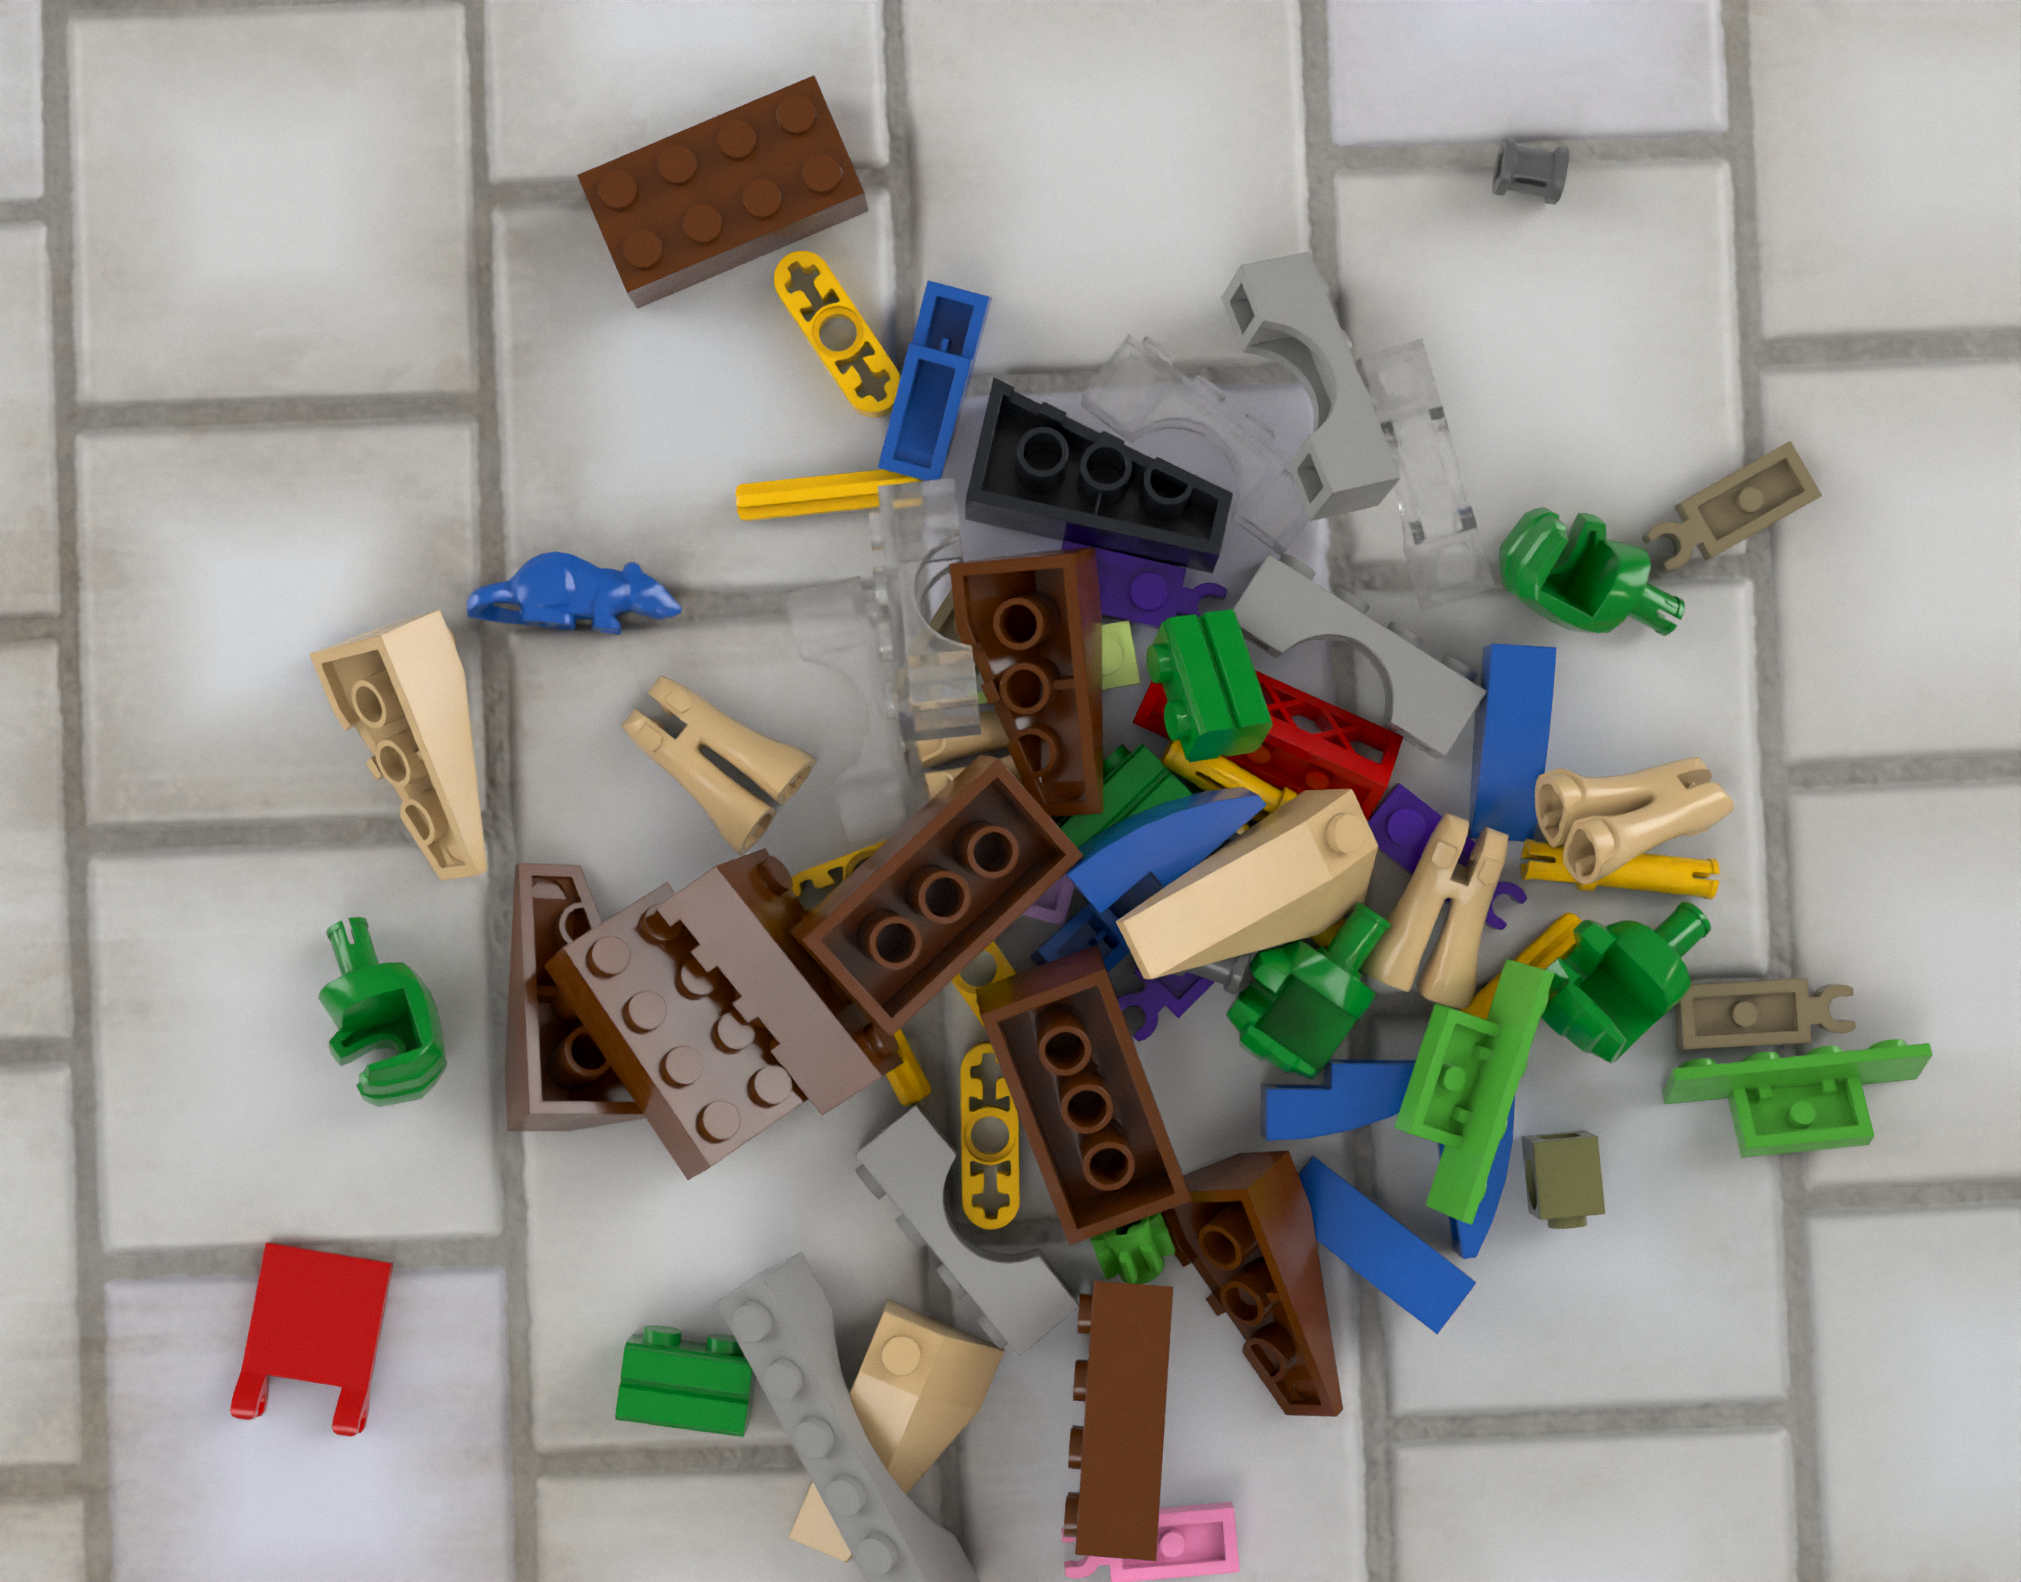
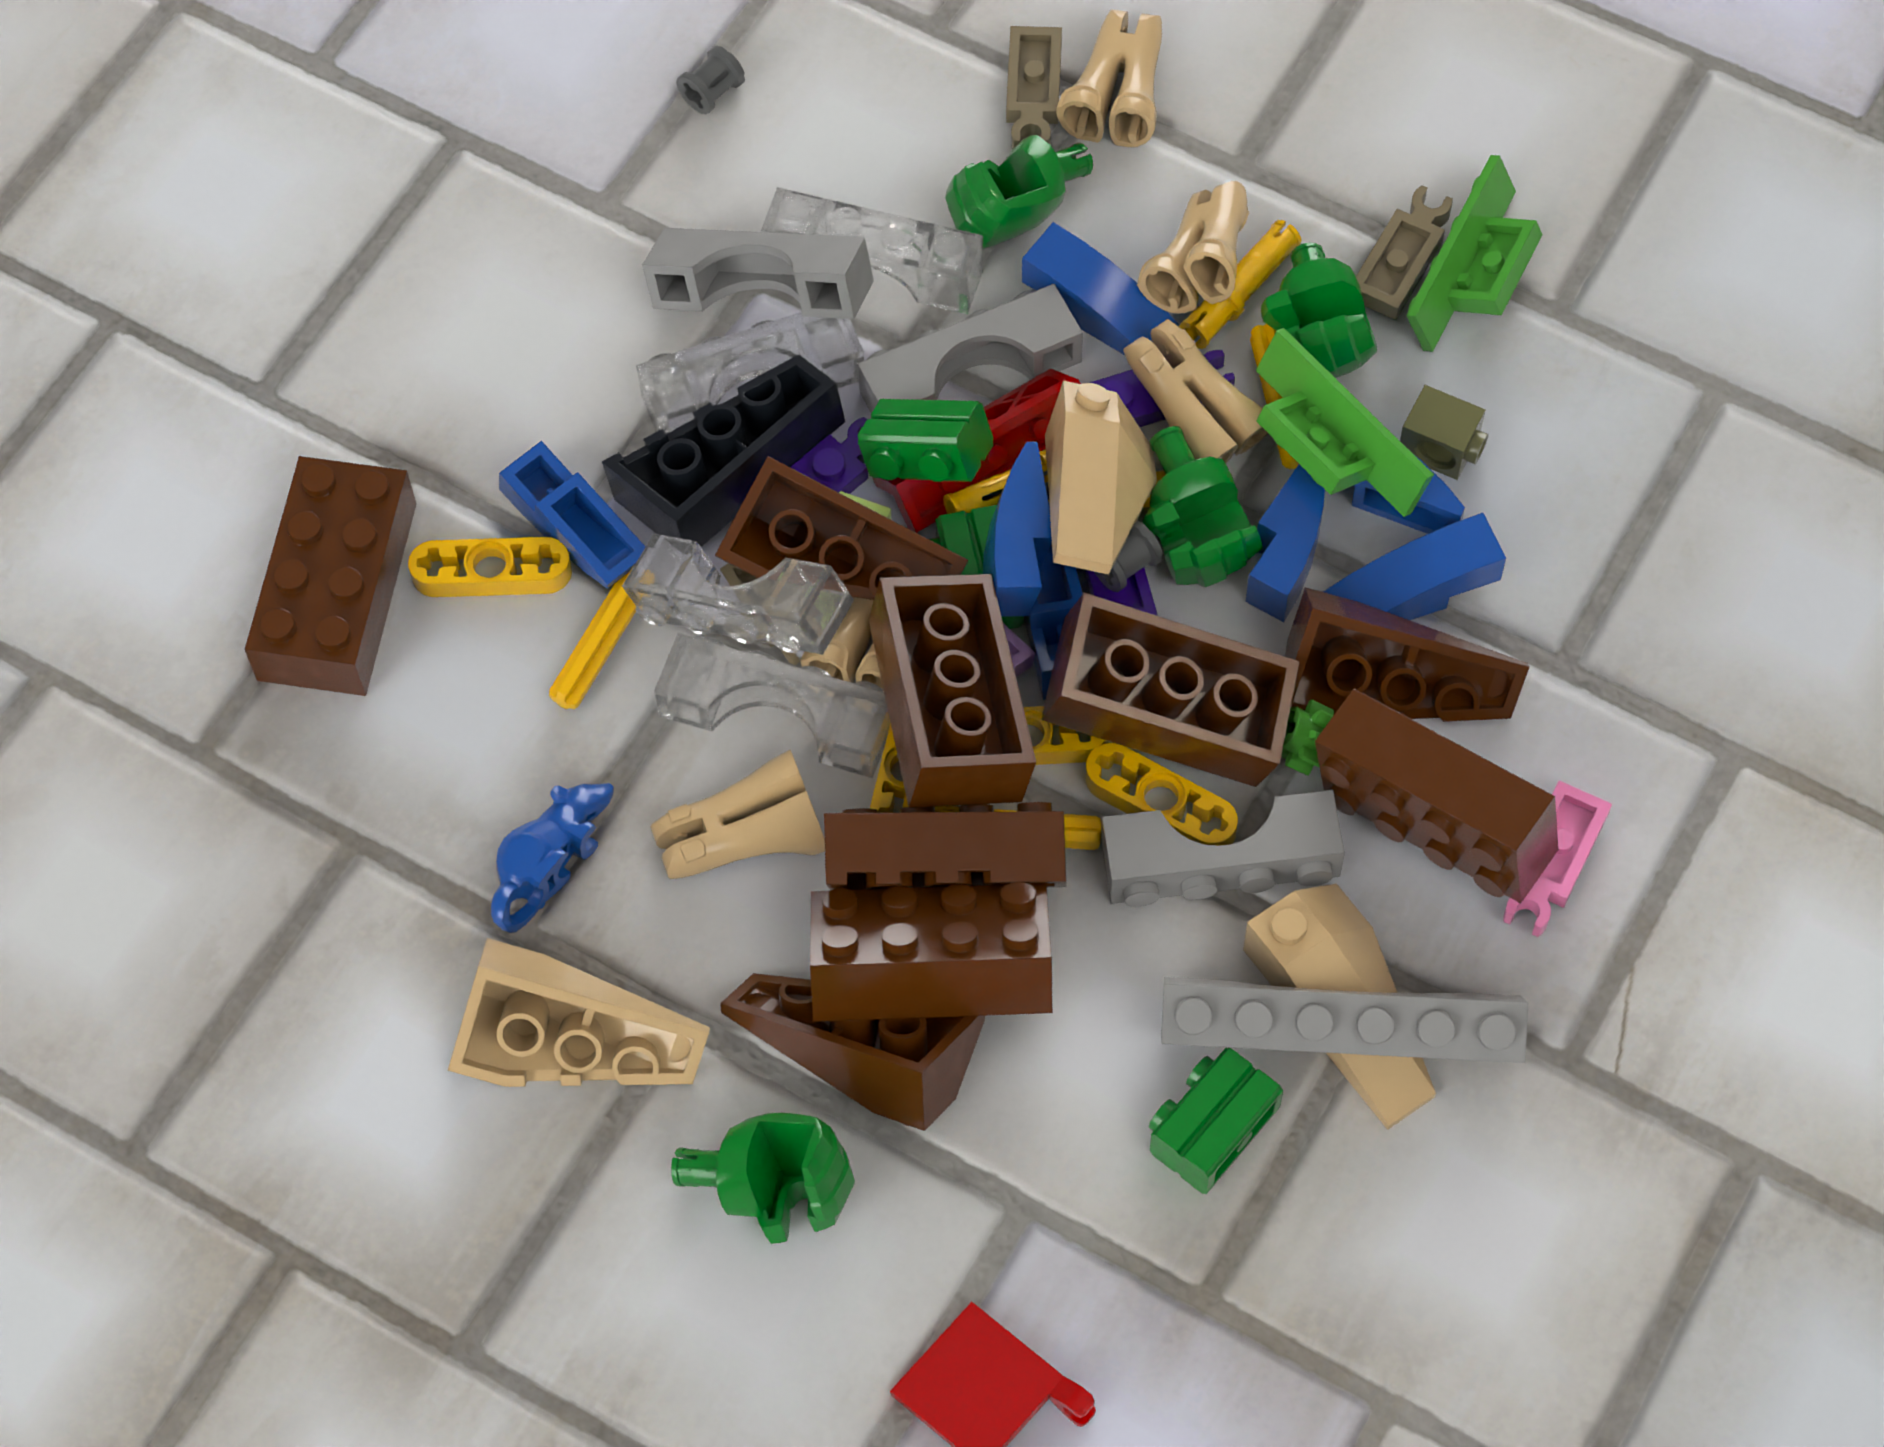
camera: 55 degrees left, 25 degrees down
(1744, 579) = (1134, 114): none -> tan piece

